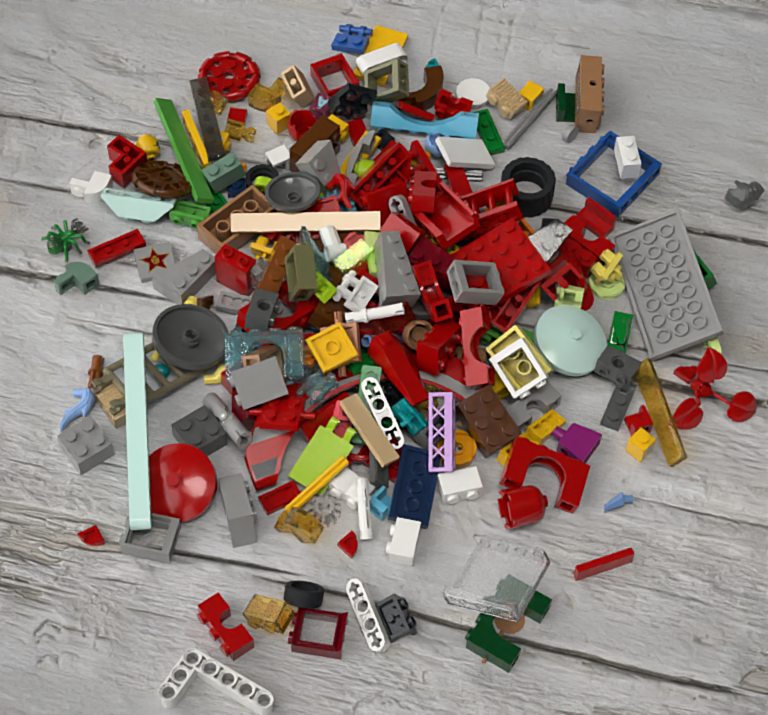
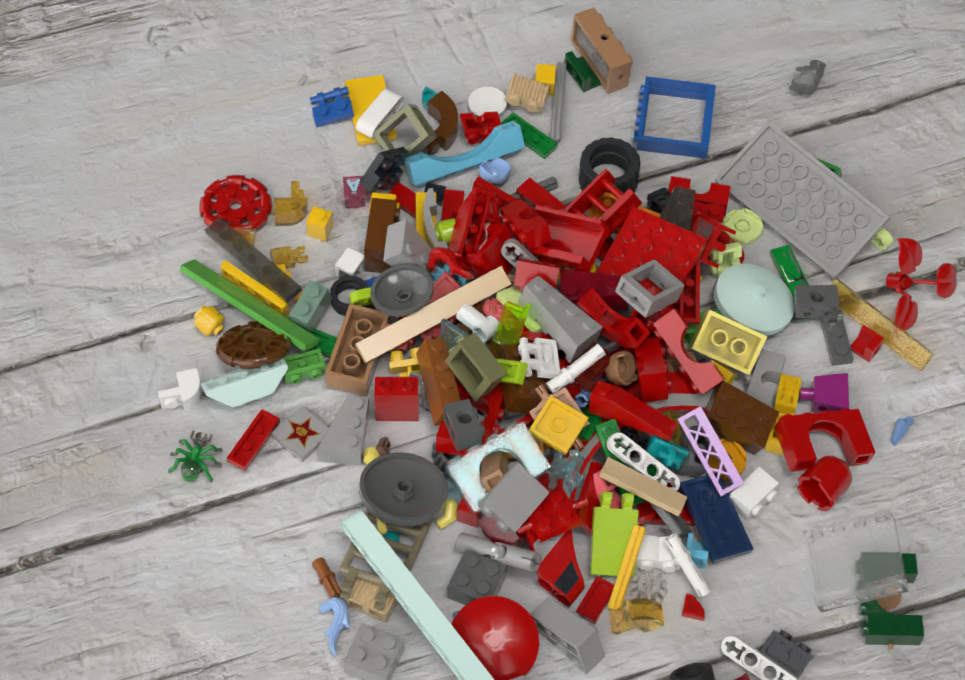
camera: 30 degrees left, 0 degrees up
(77, 274) = (237, 487): sand green brick -> none
(125, 159) = (198, 341): red brick -> none
(231, 302) = (414, 432): light grey piece -> none
(236, 188) = (331, 318): dark blue plate -> none
(238, 114) = (273, 241): red tile -> none
(297, 86) = (316, 181): tan brick -> none
(299, 123) = (350, 219): red hair -> none
(336, 64) = (332, 143): red window -> none
(404, 541) = (742, 576): white brick -> none
(415, 110) = (450, 148): red tile -> none
(465, 152) = (527, 166): white tile -> none
(508, 352) = (719, 341): white window -> none
(570, 133) = (608, 96): light grey tile -> none
(597, 218) = (692, 167): red panel -> none
(603, 564) = (932, 494): red tile -> none
(608, 270) = (741, 210): light yellow hips -> none
(627, 157) = (684, 94): white brick -> none
(640, 444) = (885, 364): yellow brick -> none
(686, 373) = (874, 275): red tile -> none

